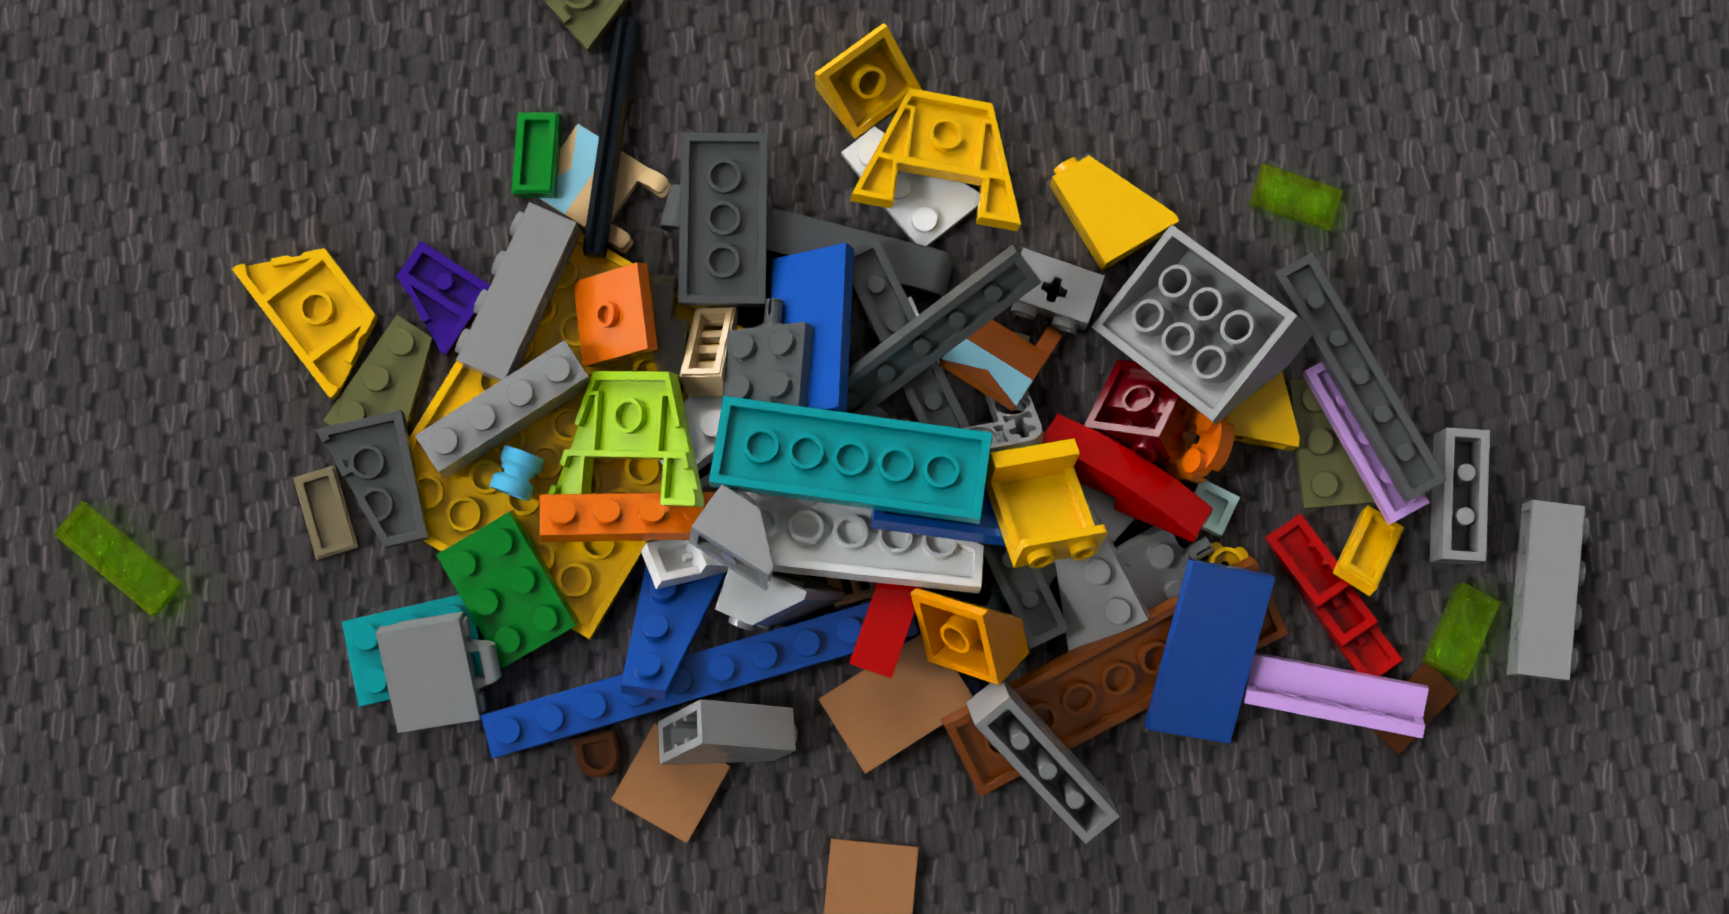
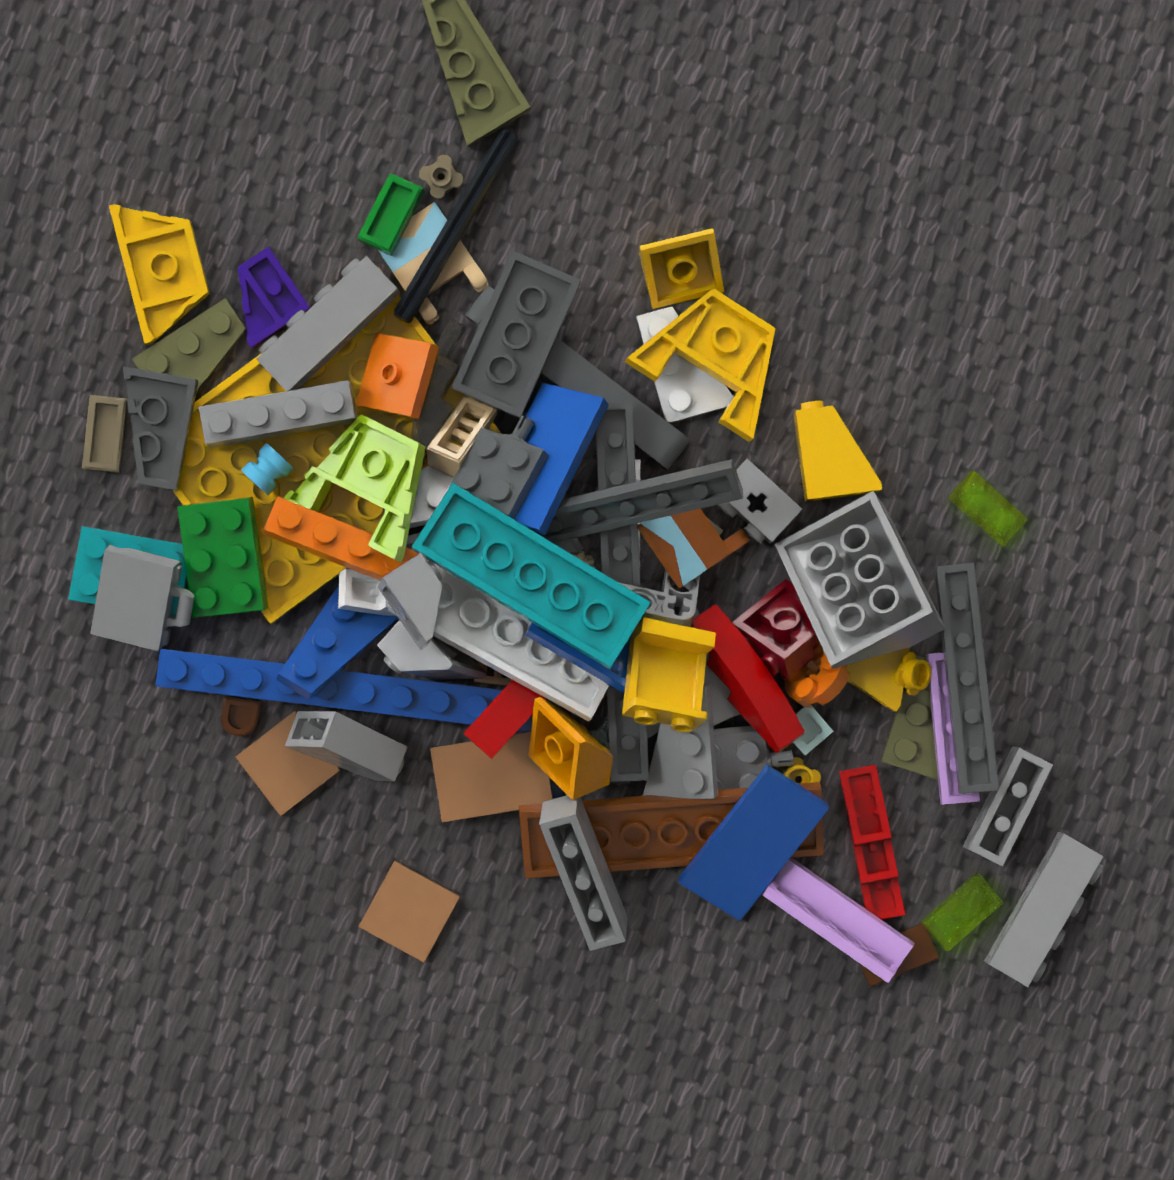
camera: 25 degrees right, 5 degrees up
(574, 106) = (437, 186): none -> dark tan plate
(1299, 397) = (913, 673): none -> yellow plate
(1368, 551) = (915, 817): yellow tile -> none

